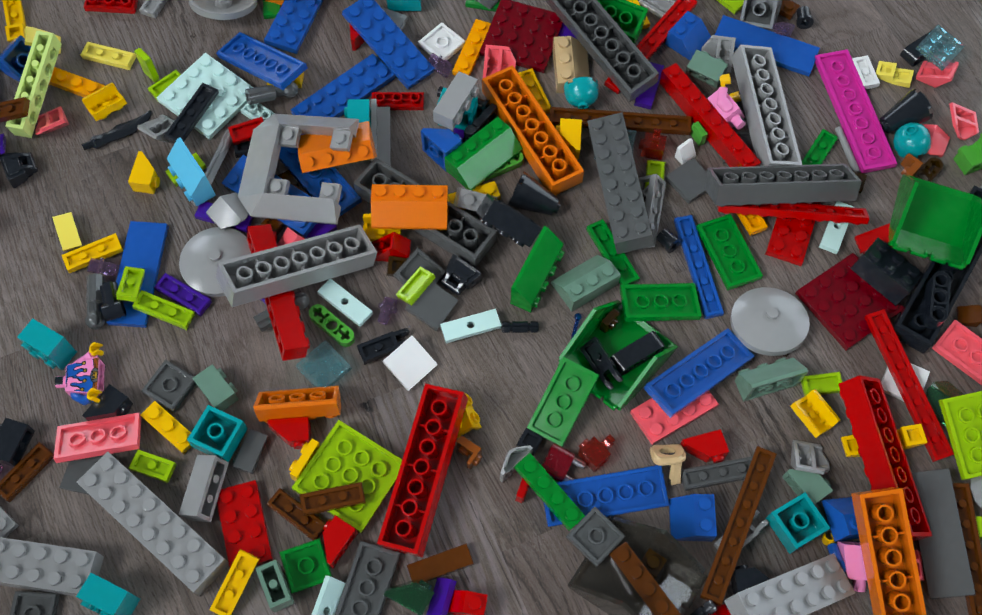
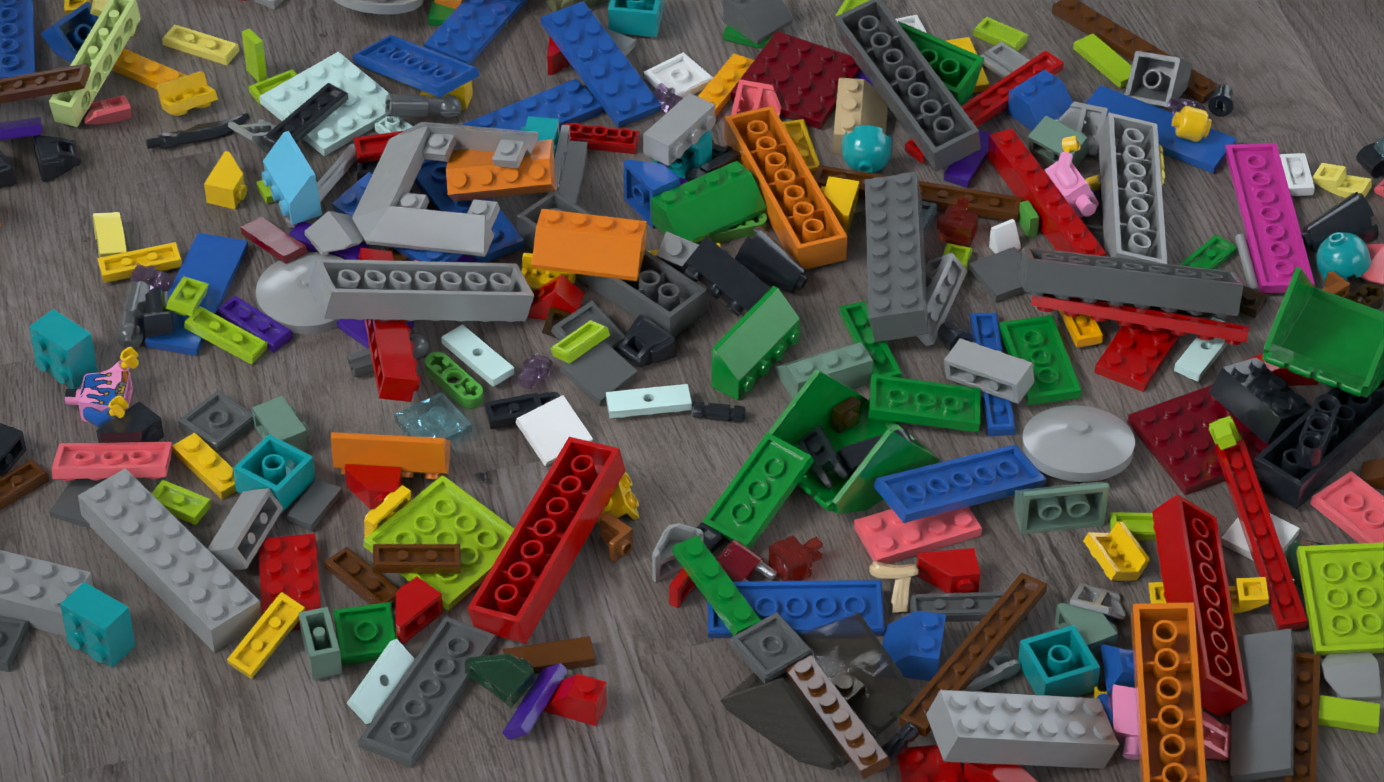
camera: 10 degrees right, 20 degrees down
(185, 221) = (273, 240): none -> tile
(700, 270) = (989, 370): none -> light grey brick
(792, 42) = (1191, 123): none -> yellow head
(871, 305) = (1224, 432): none -> lime piece

